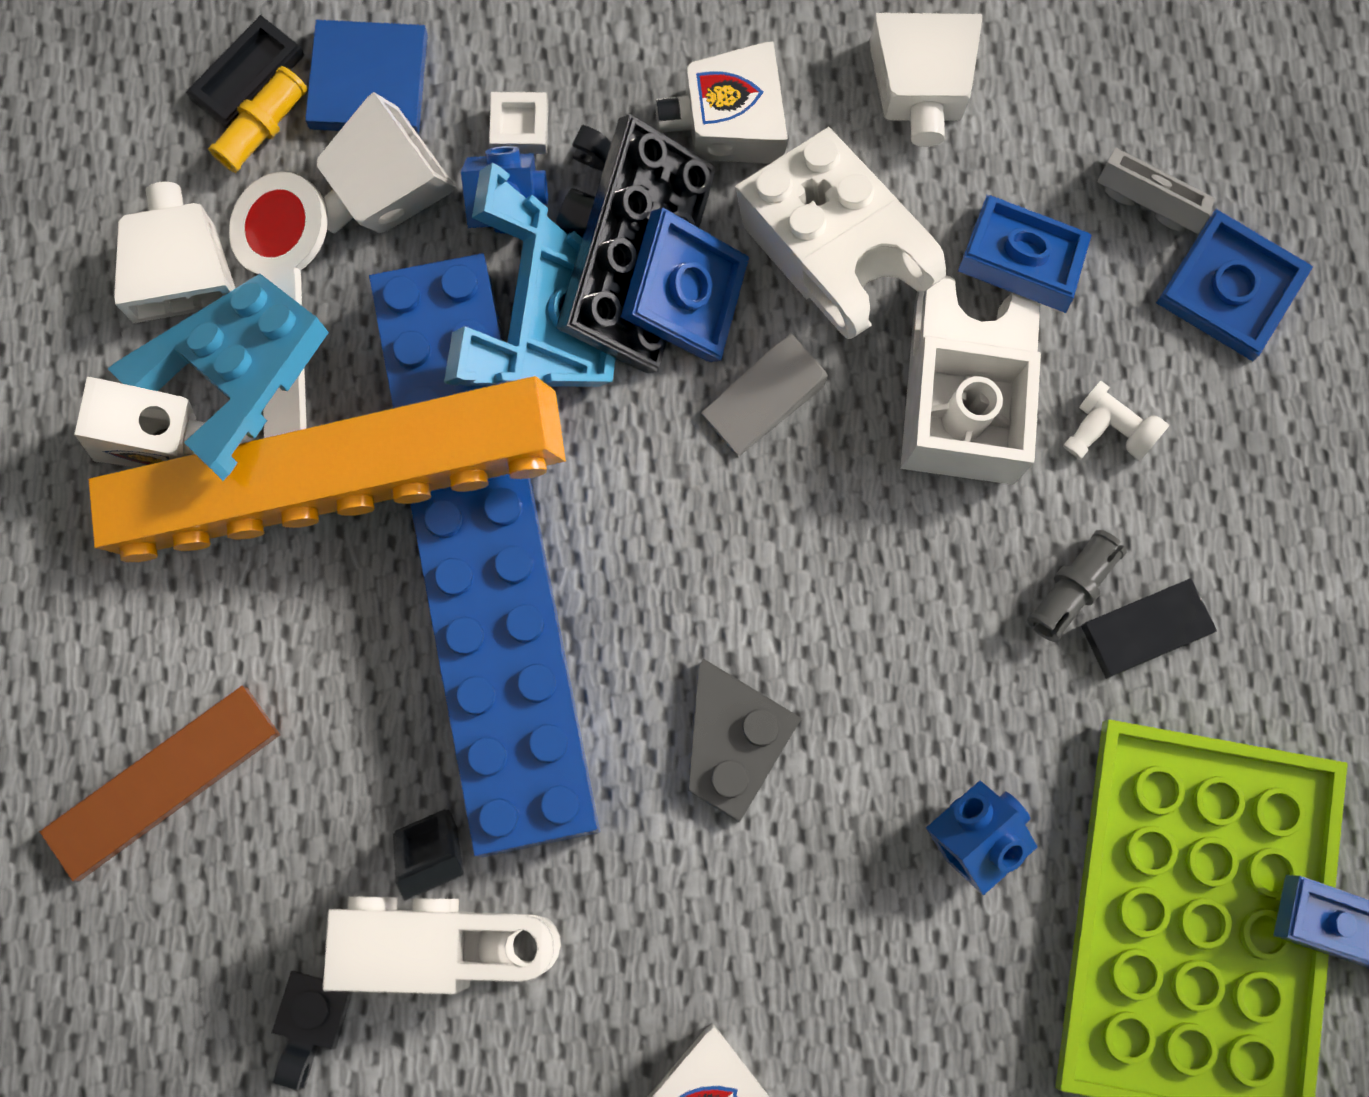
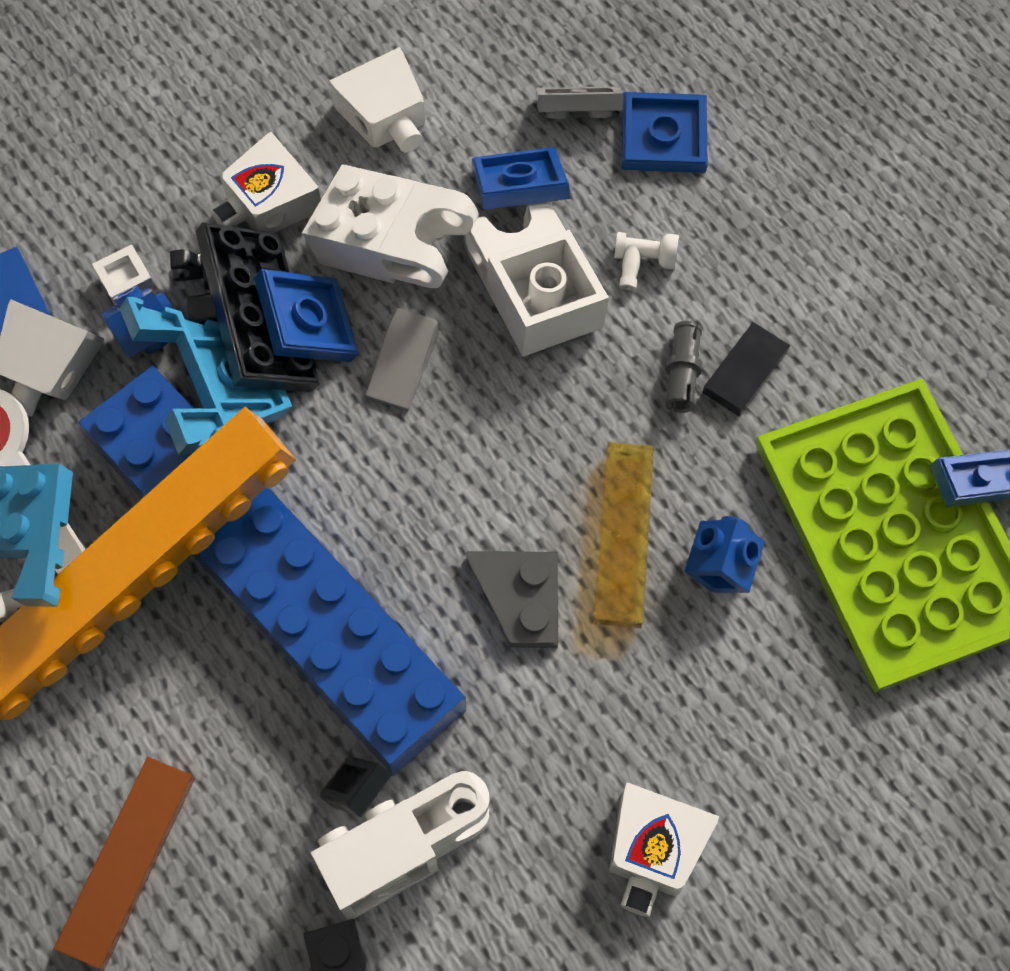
camera: 30 degrees left, 10 degrees down
(887, 742) = (624, 535): none -> clear yellow plate

